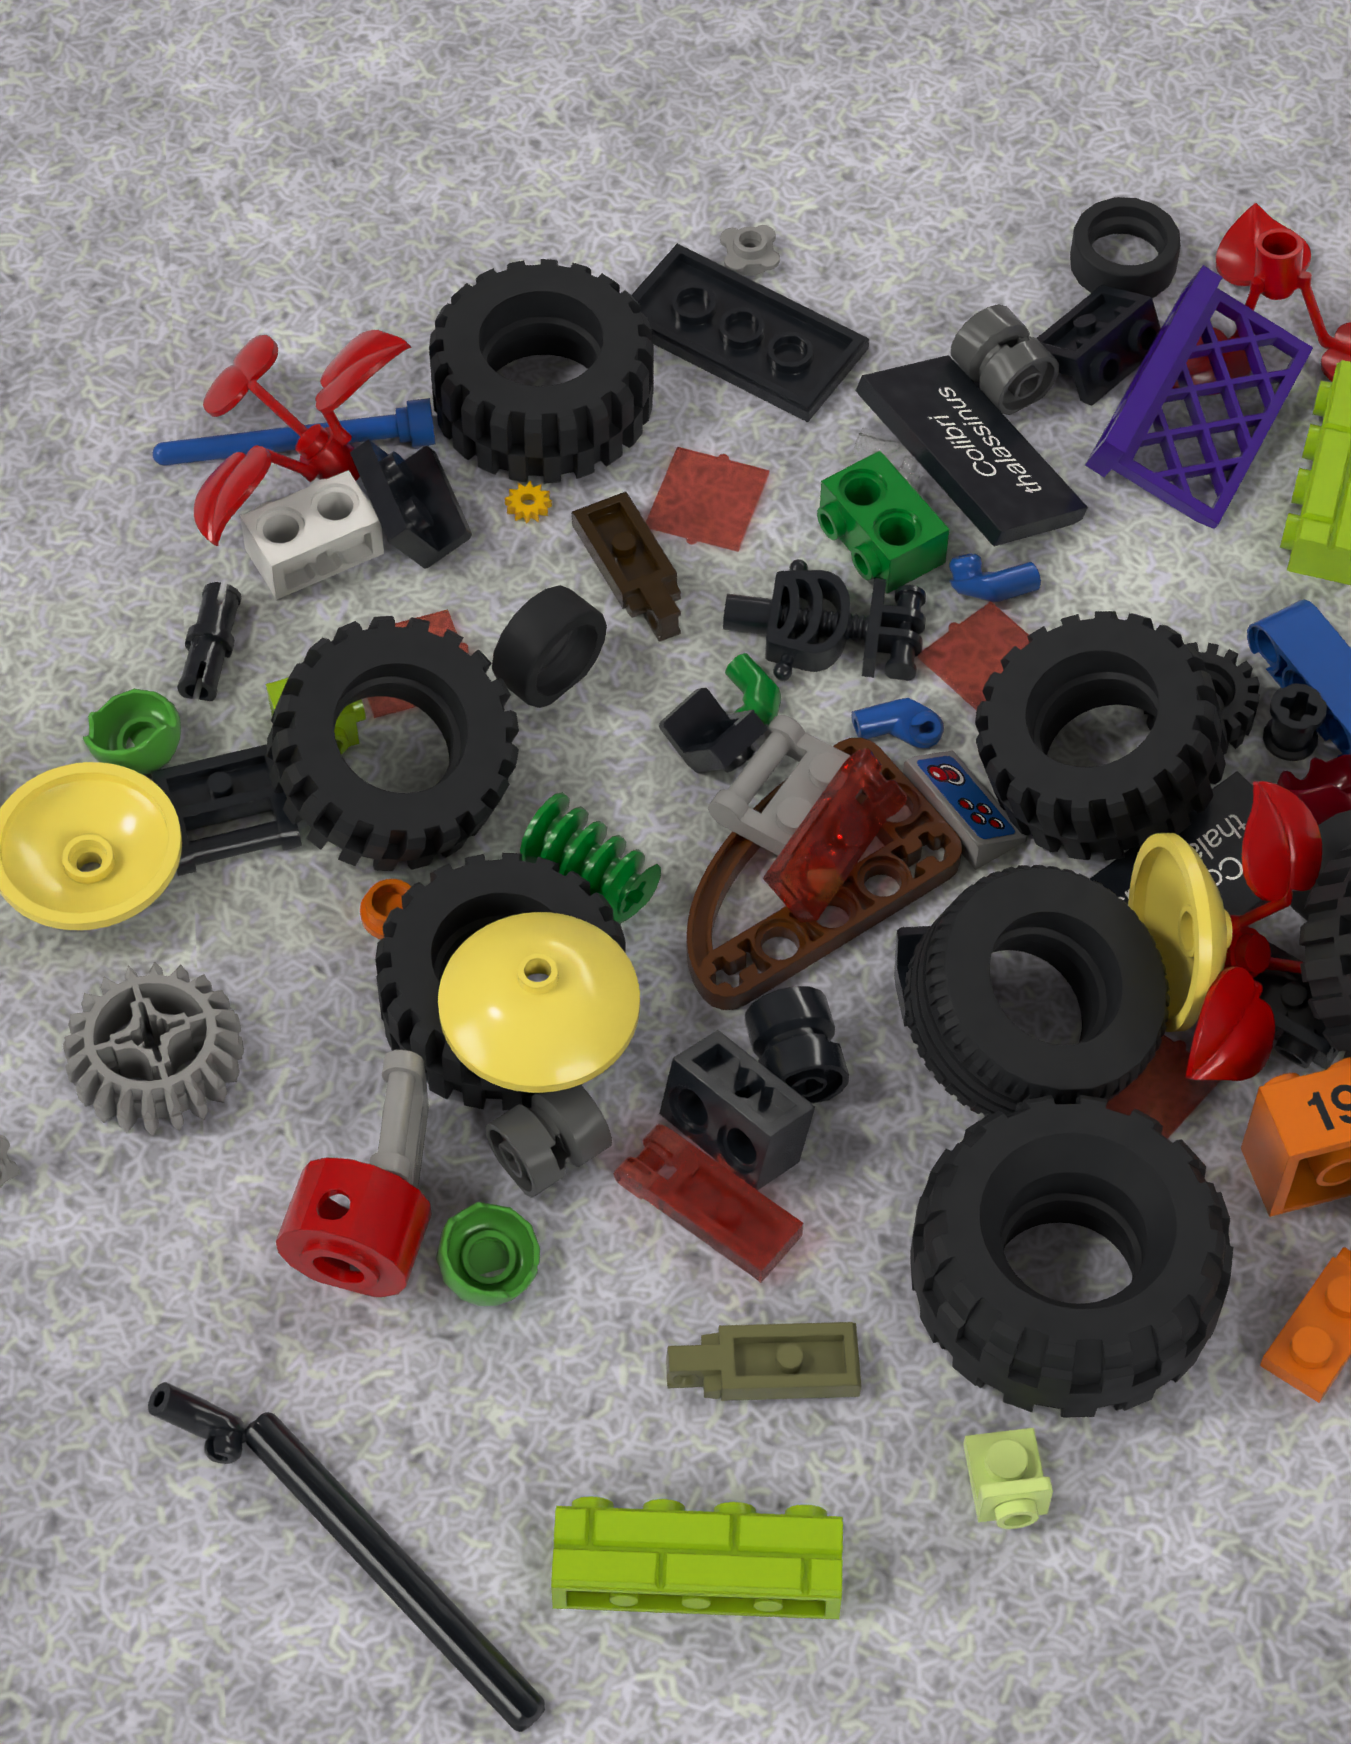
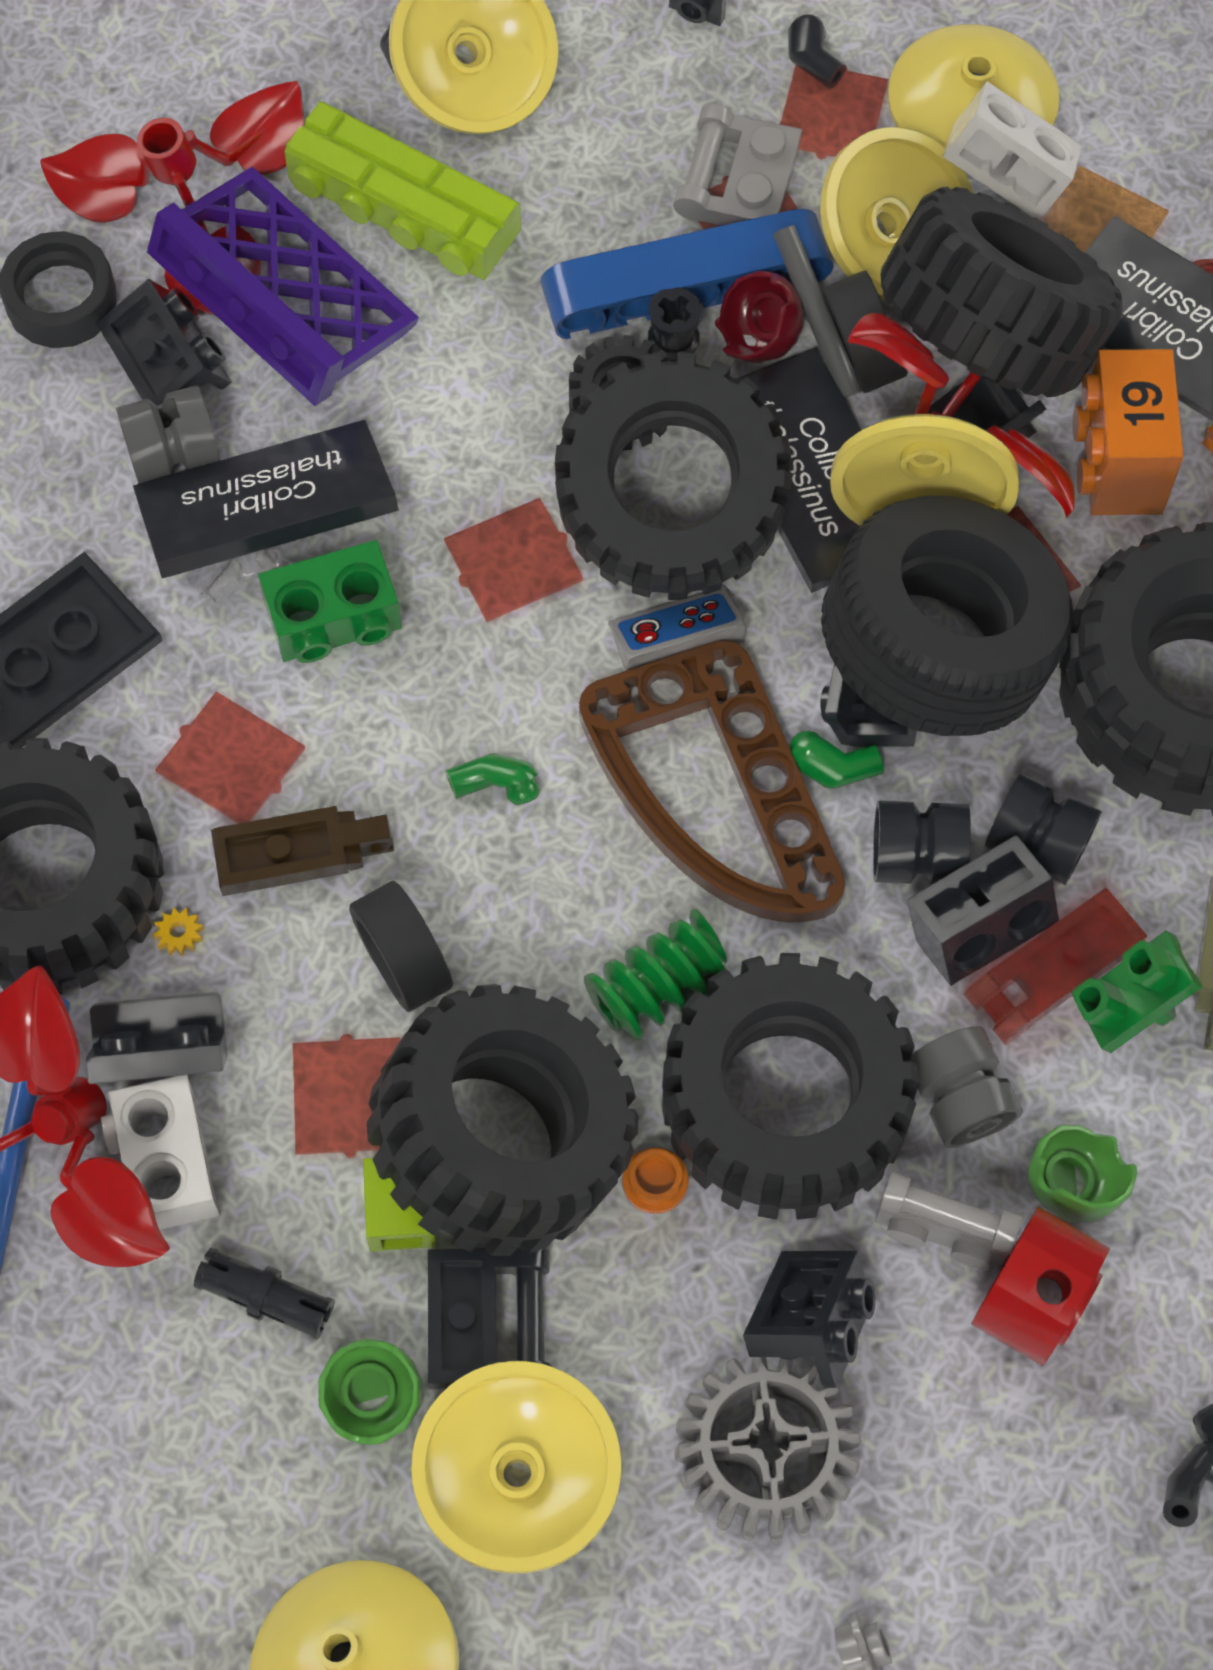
camera: 75 degrees left, 10 degrees up
(282, 1050) = (813, 1310): none -> black bracket
(543, 1031) = (856, 1083): light yellow dish -> none
(691, 1264) = (1137, 991): none -> green hips
(709, 736) = (545, 822): black bracket -> none
(795, 797) = (649, 756): light grey plate -> none
(834, 836) = (708, 739): clear red plate -> none
(848, 1152) = (1049, 830): none -> black wheel
(861, 962) = (830, 765): none -> green arm
(884, 630) = (405, 708): black torso -> none
(902, 719) = (563, 653): blue arm -> none
(992, 586) = (419, 544): blue arm -> none

